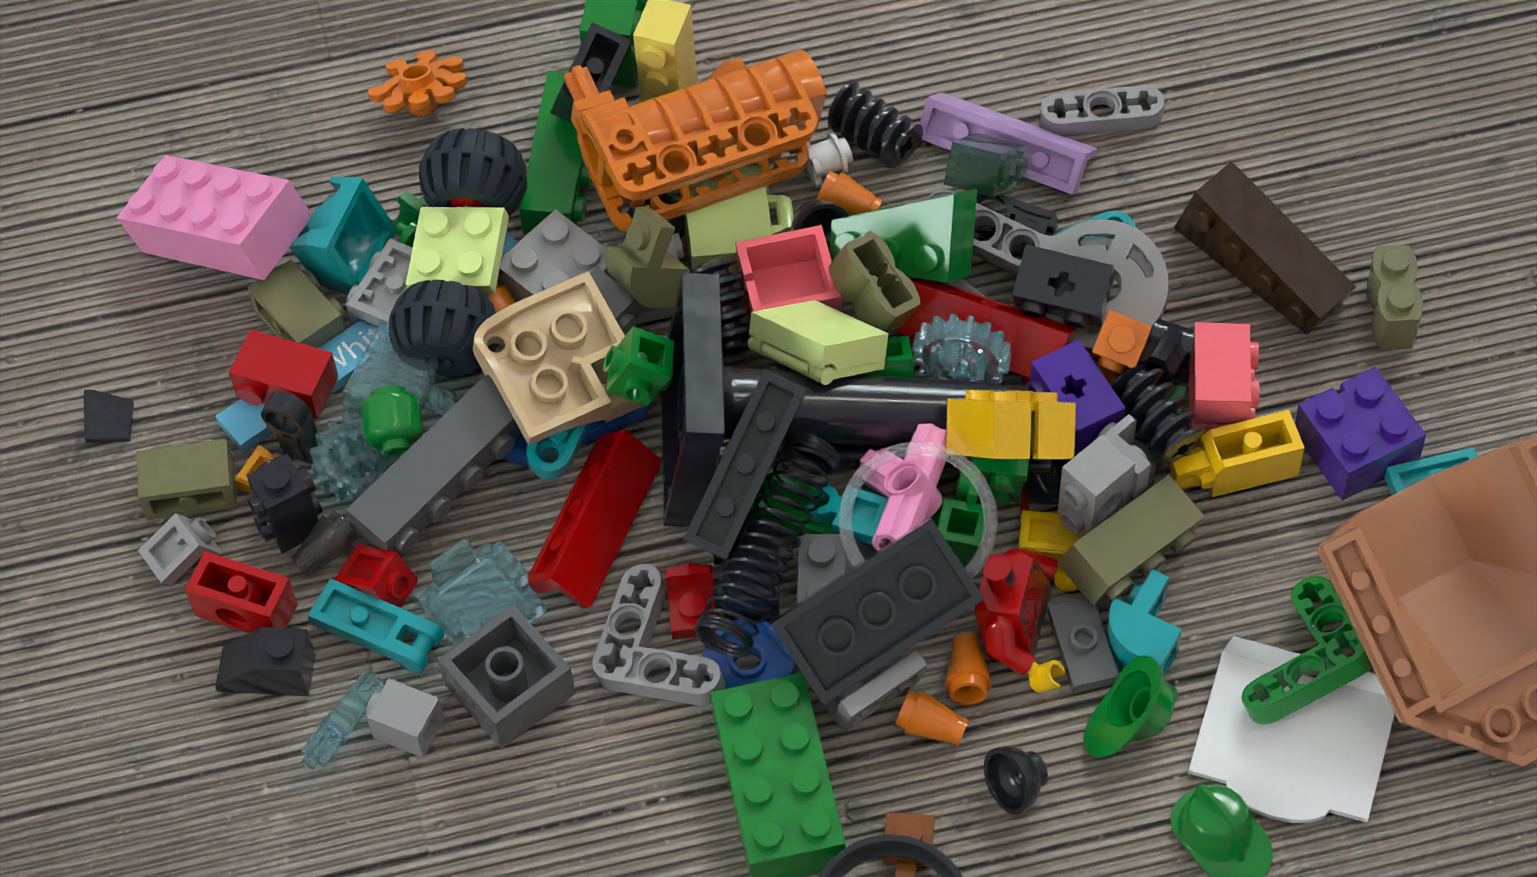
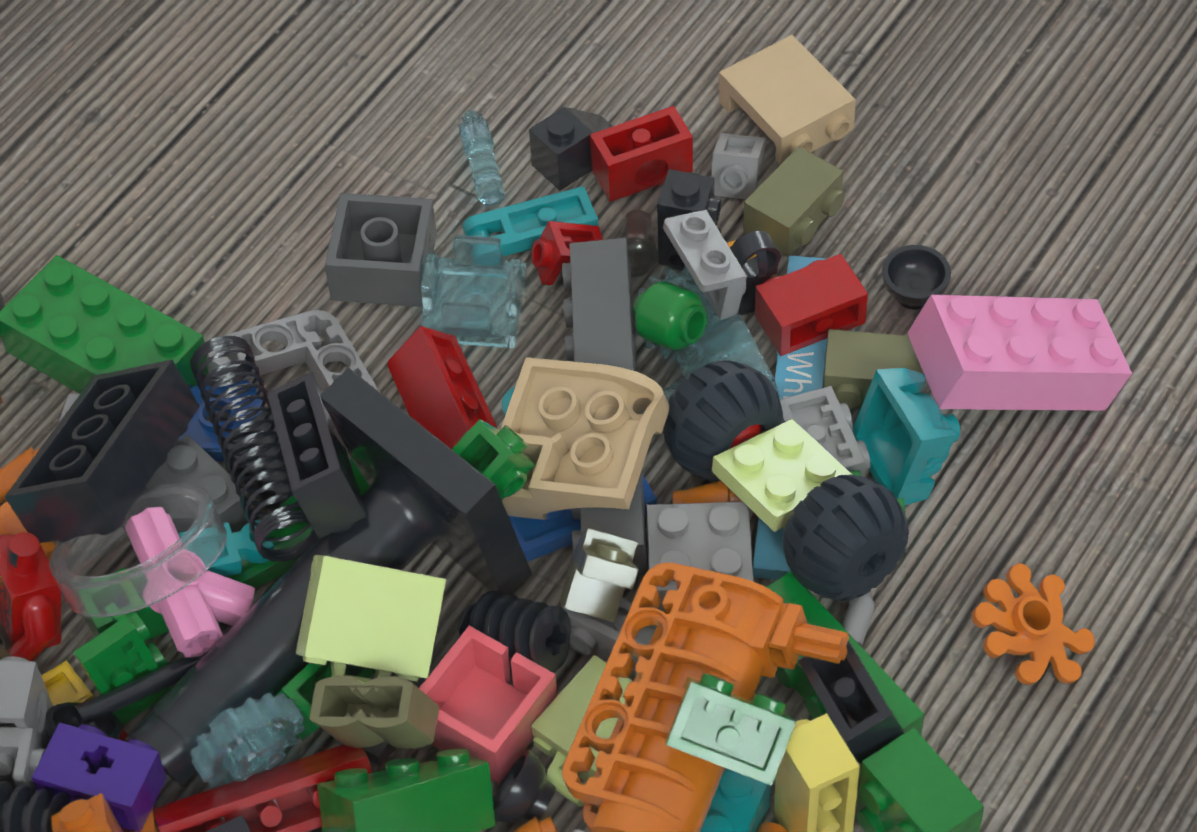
camera: 135 degrees right, 5 degrees down
(83, 565) = (789, 97): none -> tan panel
(107, 417) = (918, 204): black slope -> none
(187, 347) = (915, 274): none -> black piece
(323, 423) = (708, 260): none -> light grey bracket
(404, 717) = (438, 178): light grey brick -> none
(696, 55) = (731, 729): none -> bracket
(1011, 425) = (126, 669): yellow piece -> none

